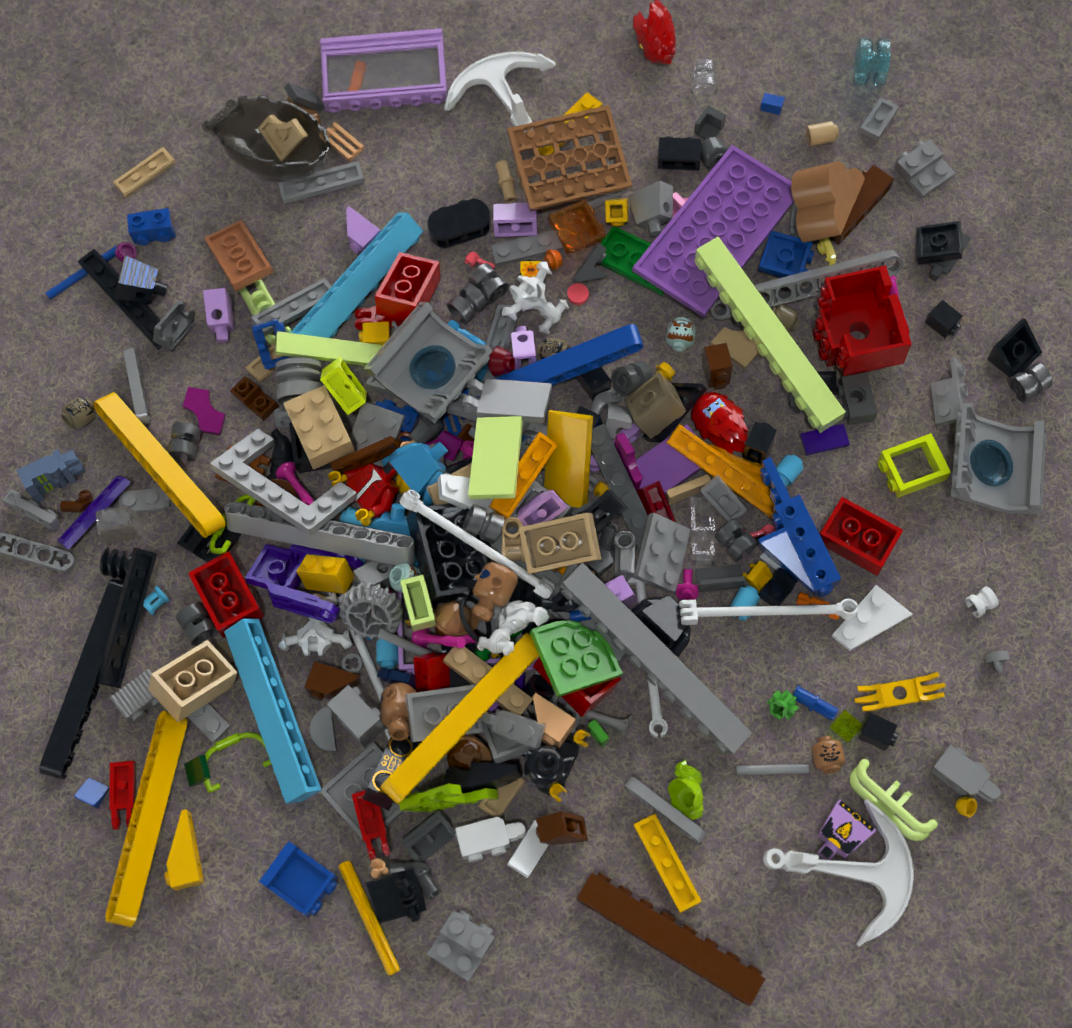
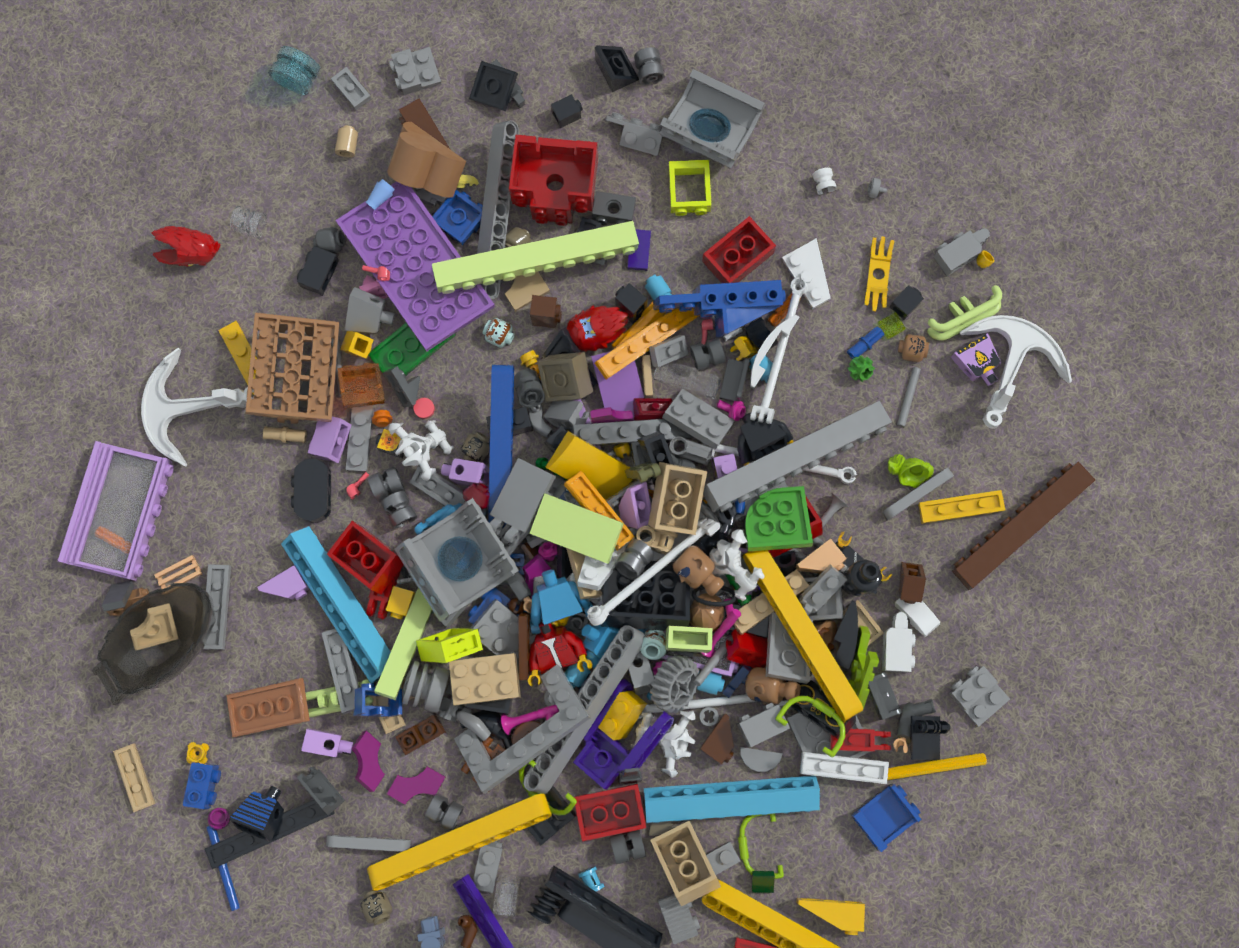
camera: 75 degrees left, 10 degrees up
(180, 209) = (191, 753): none -> yellow plate
(223, 354) = (366, 751): none -> magenta tile
(265, 600) = (629, 776): none -> dark grey piece
(276, 438) = (473, 723): none -> light grey arm
(338, 817) = (844, 767): none -> white tile
(388, 764) = (823, 708): none -> lime piece
(575, 501) = (643, 471): none -> olive plate
(598, 733) = (838, 526): bright green tile -> none
(693, 202) = (383, 273): none -> coral hand
(709, 123) = (298, 233): dark grey panel -> none
(732, 590) = (784, 328): none -> white slope
(772, 103) = (297, 172): blue slope -> none
(773, 171) = (380, 193): none -> light blue cone

